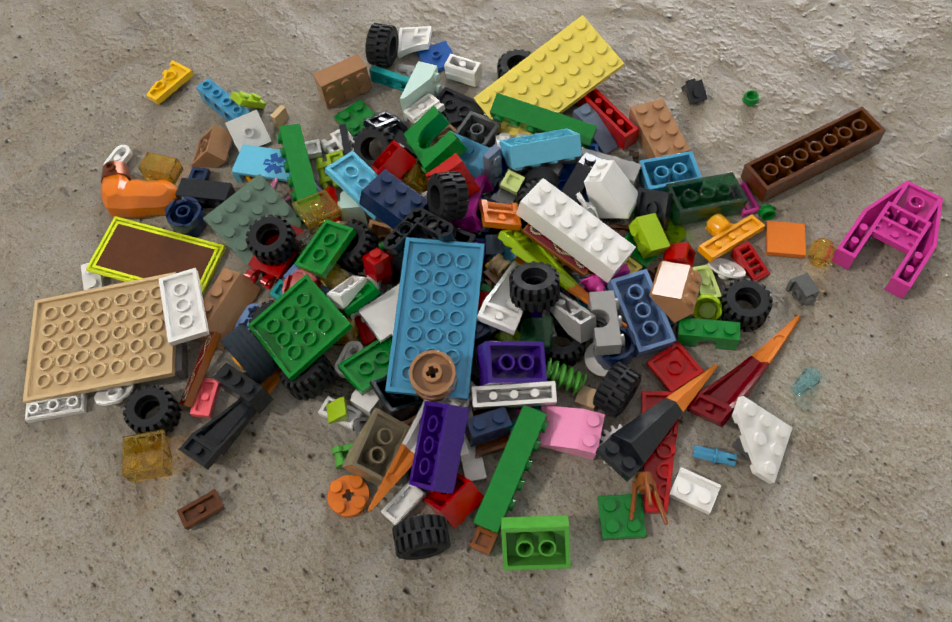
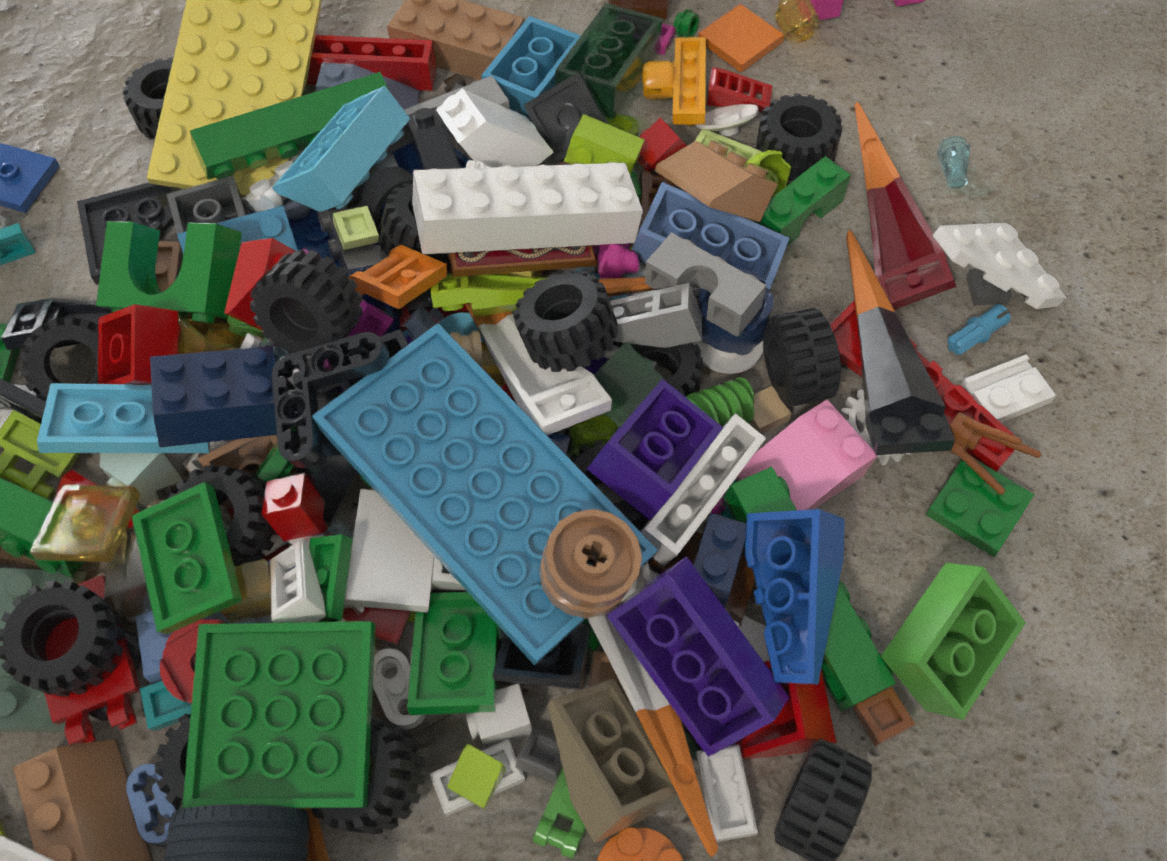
camera: 55 degrees left, 0 degrees up
(421, 106) = (80, 253): white plate -> none
(422, 81) = (45, 227): light aqua slope -> none
(463, 70) = (81, 157): white brick -> none
(493, 165) = (301, 217): sand blue plate -> none
(505, 457) = (797, 579): none -> blue wedge
(674, 367) = (814, 277): red plate -> none
(803, 289) = (830, 70): dark grey brick -> none

